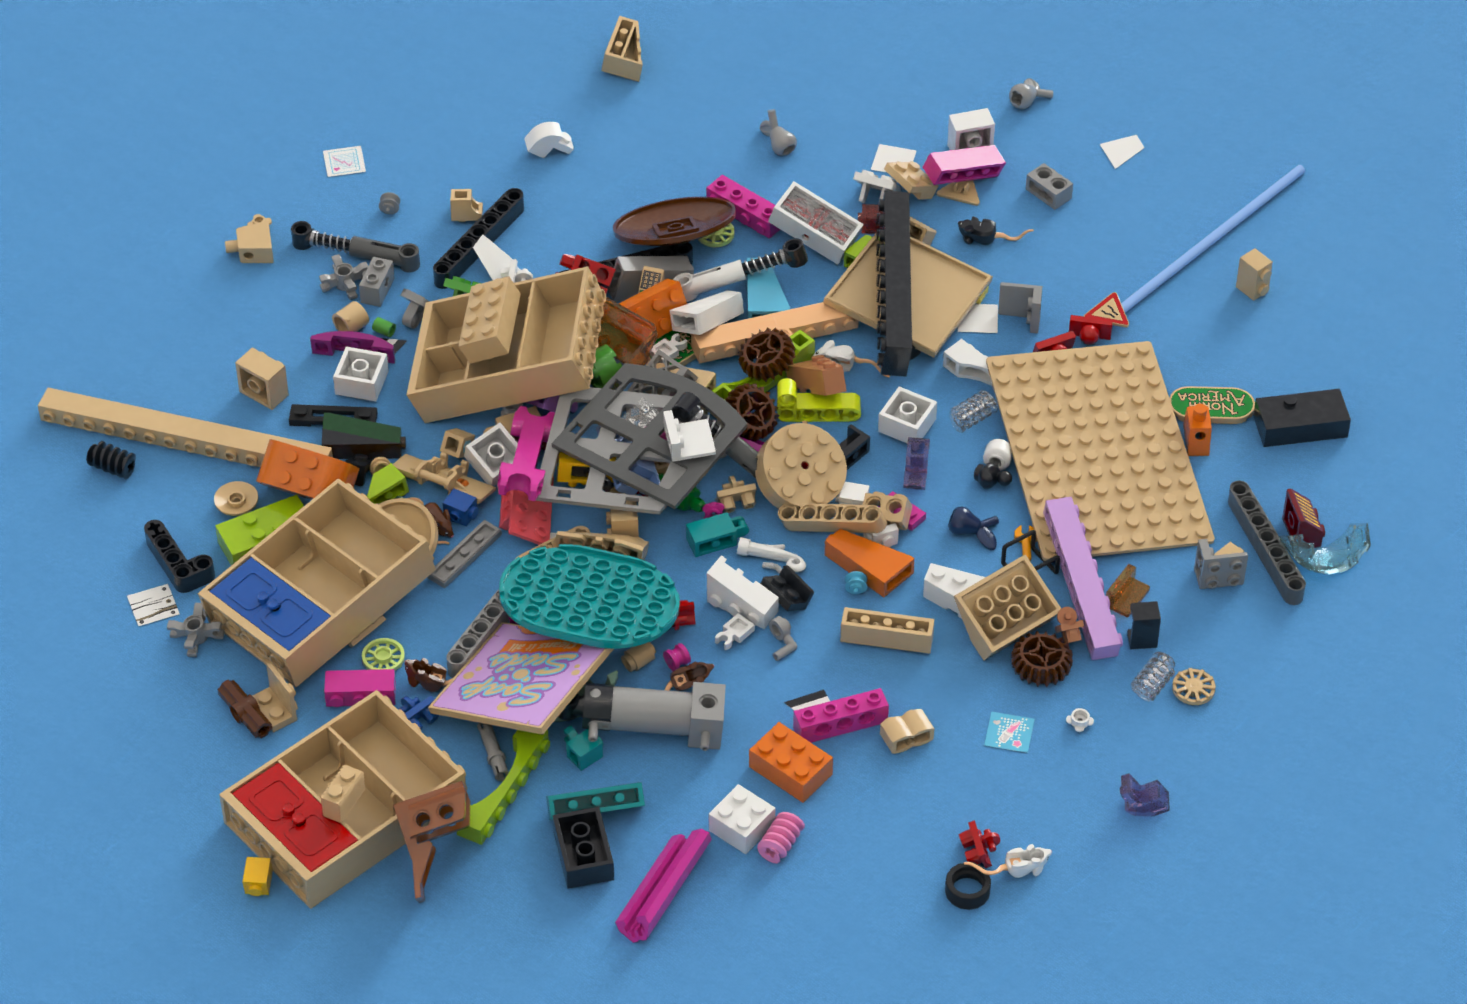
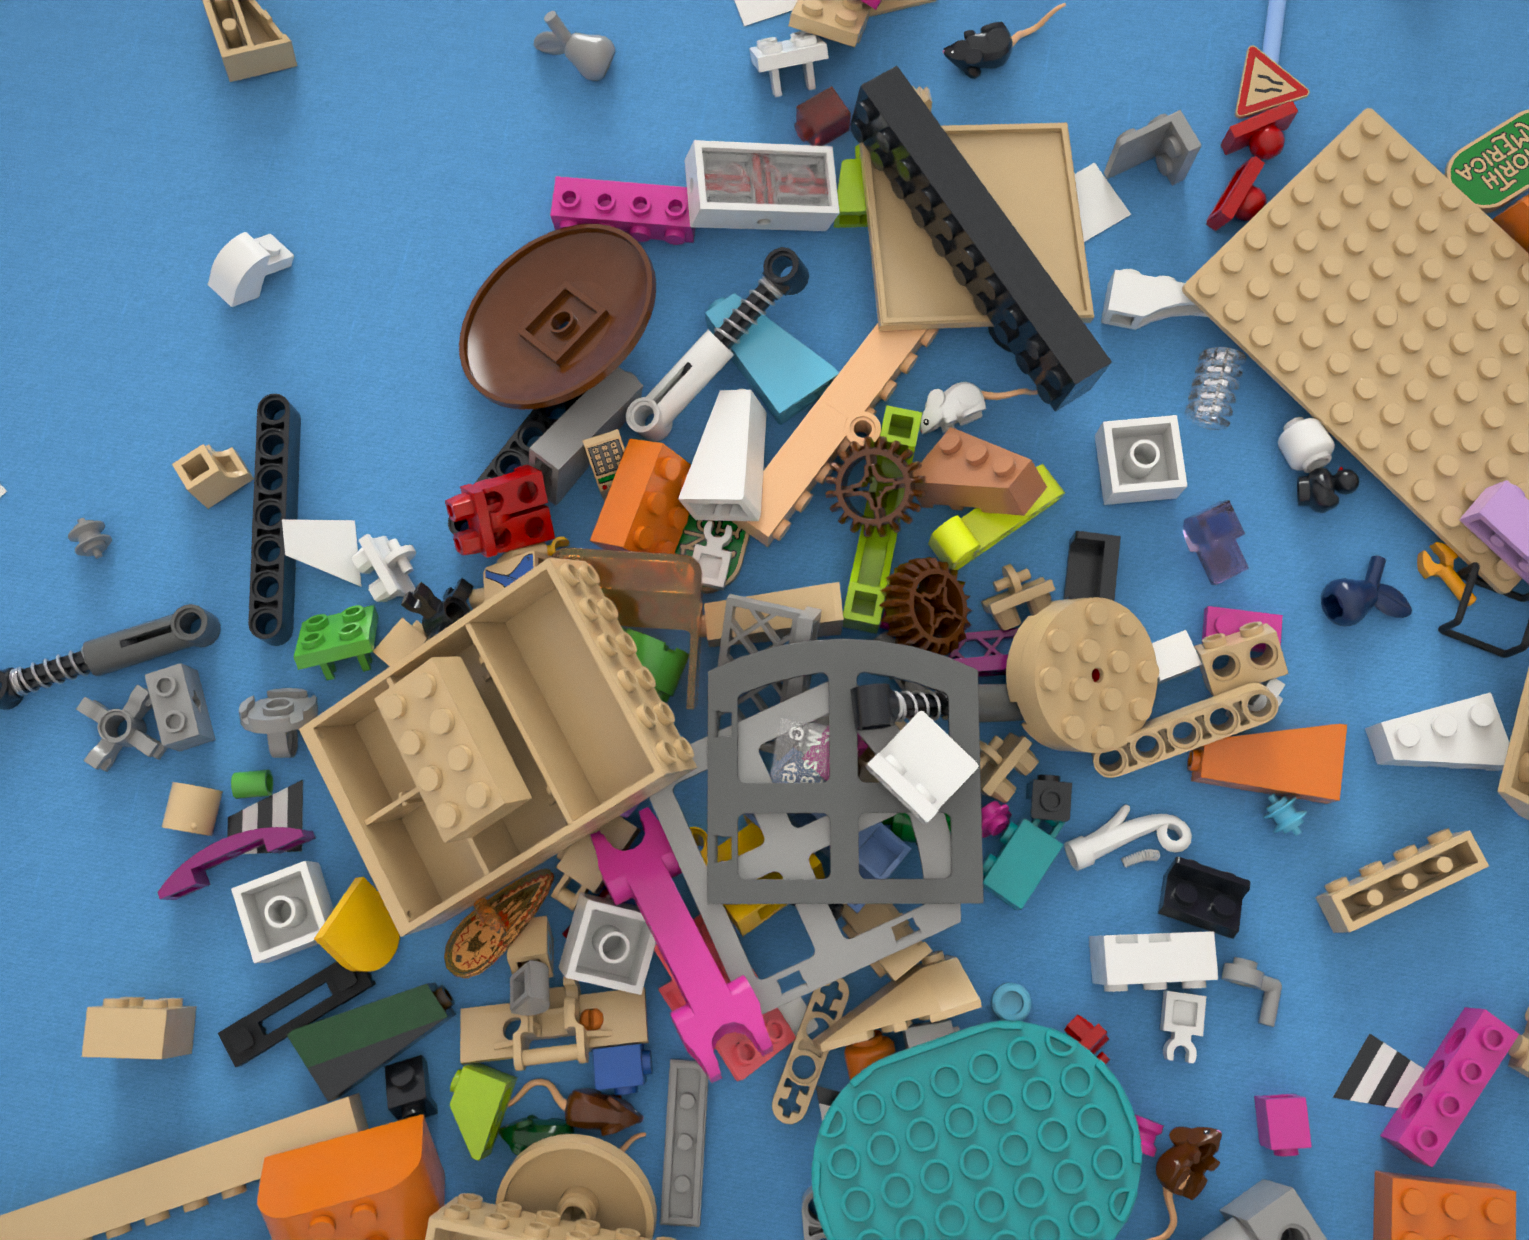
camera: 30 degrees left, 30 degrees up
(378, 463) = (441, 1066): tan plate -> none
(388, 395) = (360, 930): none -> yellow tile
(446, 448) = (530, 989): none -> light grey brick
(451, 425) = (495, 924): none -> clear orange shield
(747, 513) = (1049, 798): none -> black bracket
(748, 688) = (1283, 1123): none -> dark pink brick

